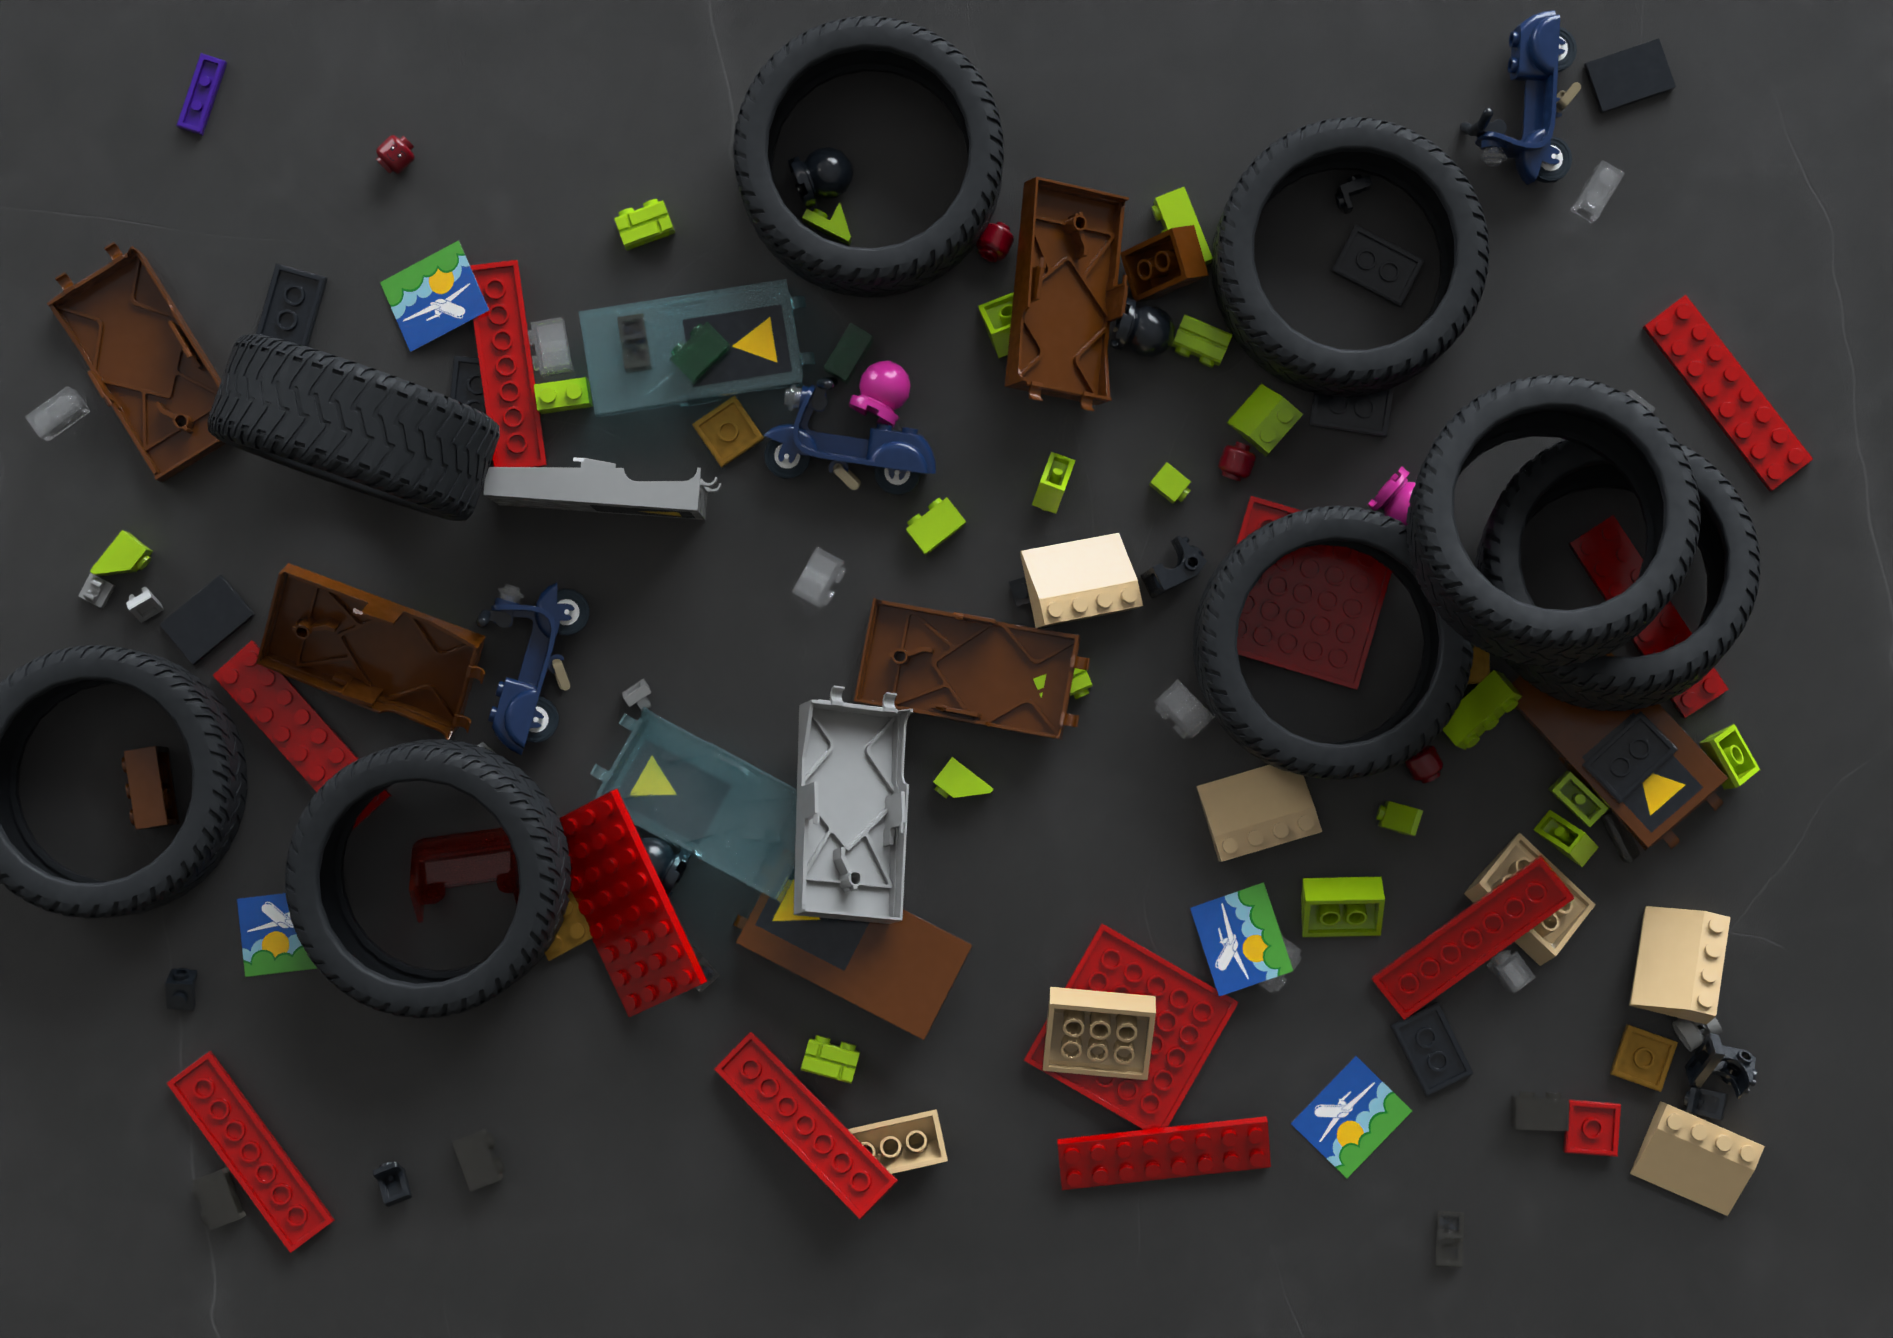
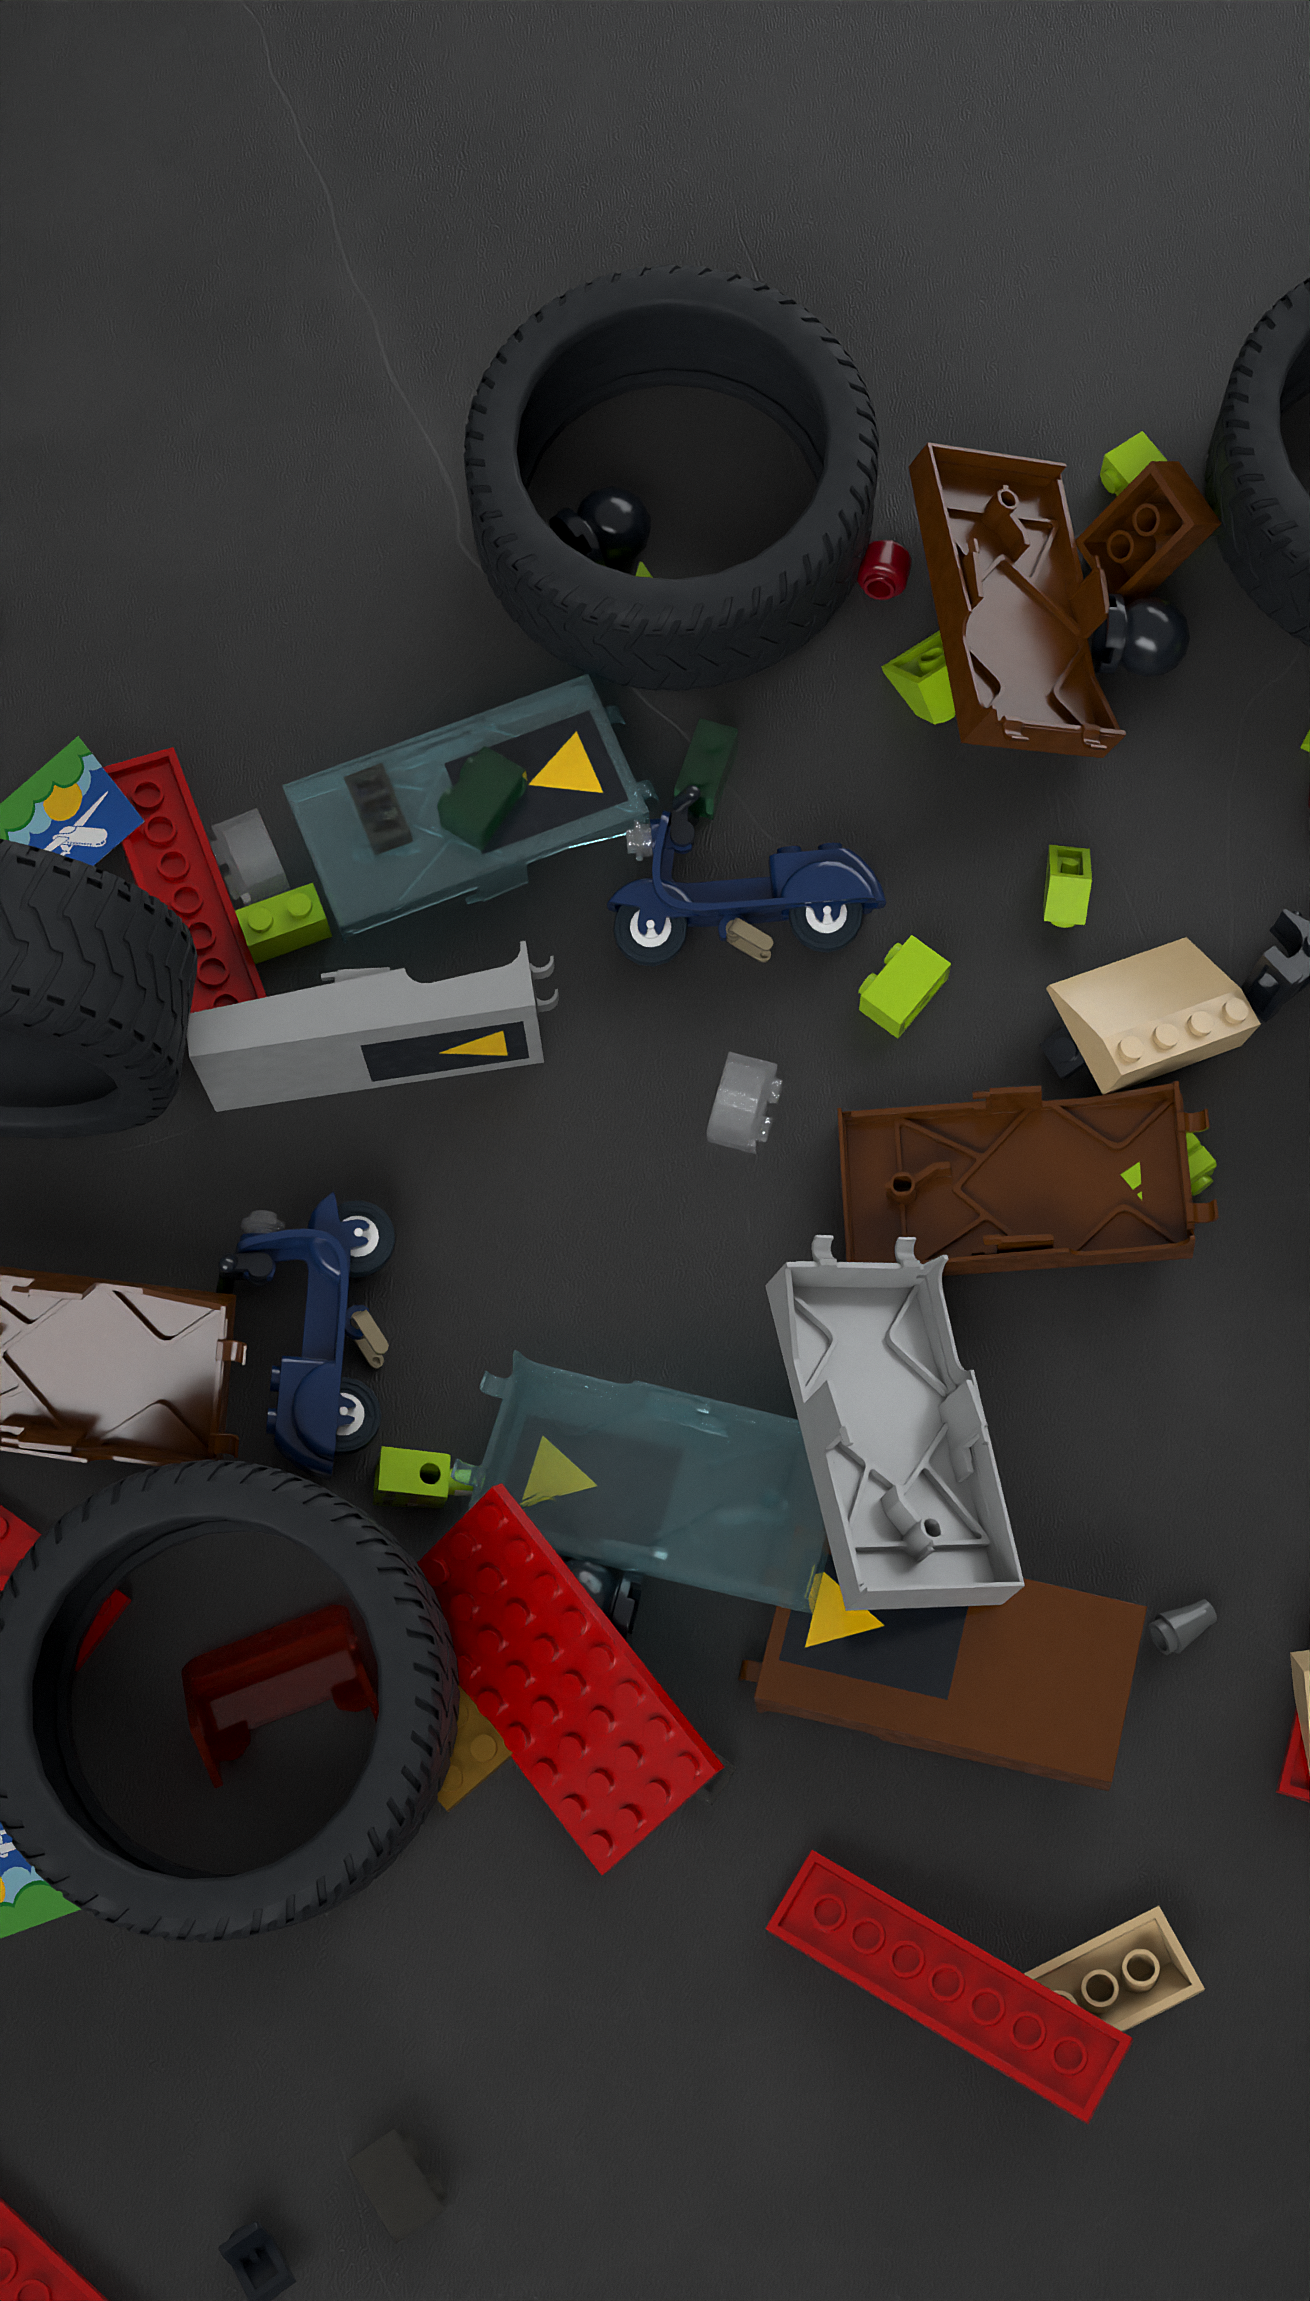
camera: 10 degrees left, 15 degrees down
(561, 763) = (400, 1483): none -> lime torso
(637, 694) = (498, 1344): light grey tile -> none
(644, 224) = (355, 658): lime brick -> none
(728, 431) = (550, 919): pearl gold plate -> none
(830, 1059) = (957, 1866): lime brick -> none
(882, 390) = (771, 808): dark pink tile -> none
(959, 781) = (1049, 1362): lime slope -> none
(994, 954) = (1181, 1626): none -> dark grey cone
(1170, 484) = (1245, 846): lime brick -> none
(1201, 341) = (1230, 638): lime brick -> none

